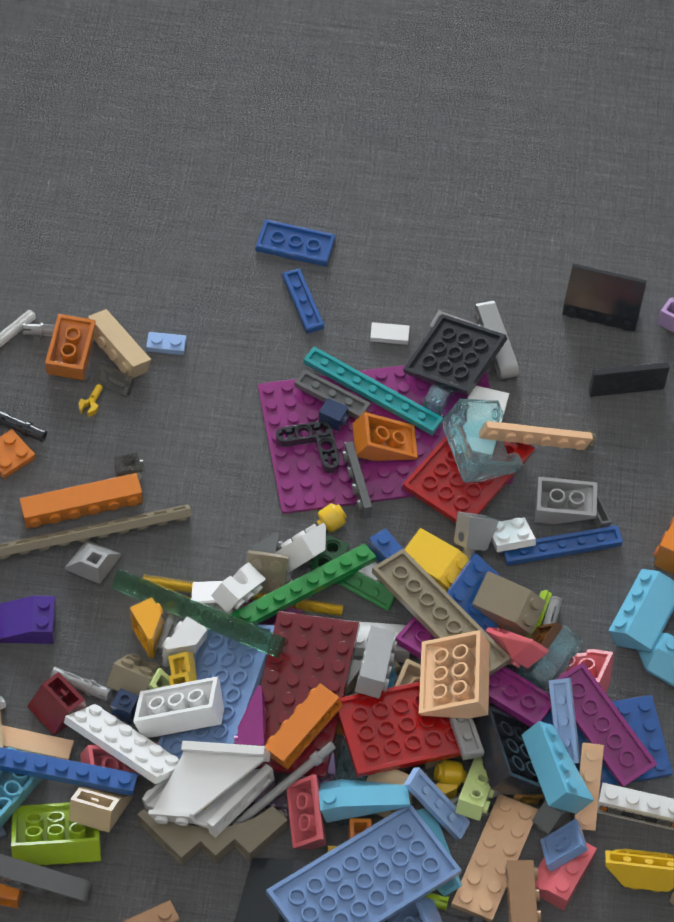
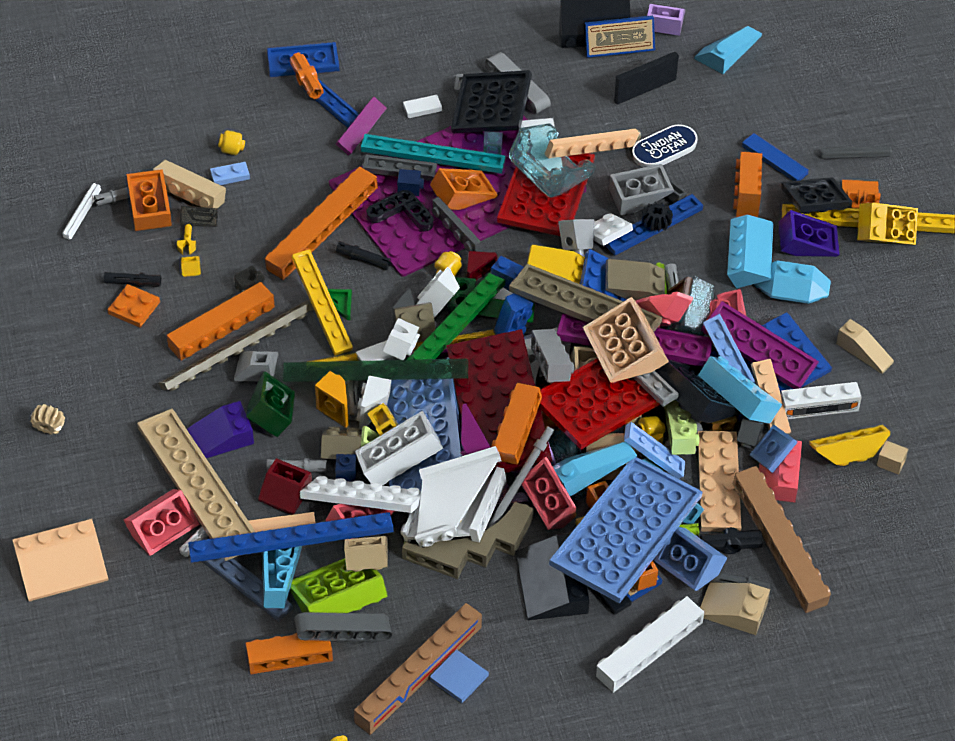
camera: 20 degrees left, 5 degrees down
(82, 430) = (190, 266): none -> yellow slope
(85, 610) = (271, 405): none -> dark green slope
(181, 310) = (231, 142): none -> yellow head
(184, 517) = (322, 302): none -> yellow plate
(208, 517) = (342, 300): none -> green tile
(227, 428) = (322, 221): none -> orange brick
(246, 471) = (363, 255): none -> black pin
(287, 263) = (306, 75): none -> orange piece
(317, 335) = (361, 126): none -> magenta tile
(362, 528) = (480, 263): none -> dark red slope
(365, 601) = (514, 314): none -> blue slope
(565, 539) = (657, 216): none -> black gear
(615, 460) = (664, 146): none -> tile
(623, 323) = (619, 36): none -> tile

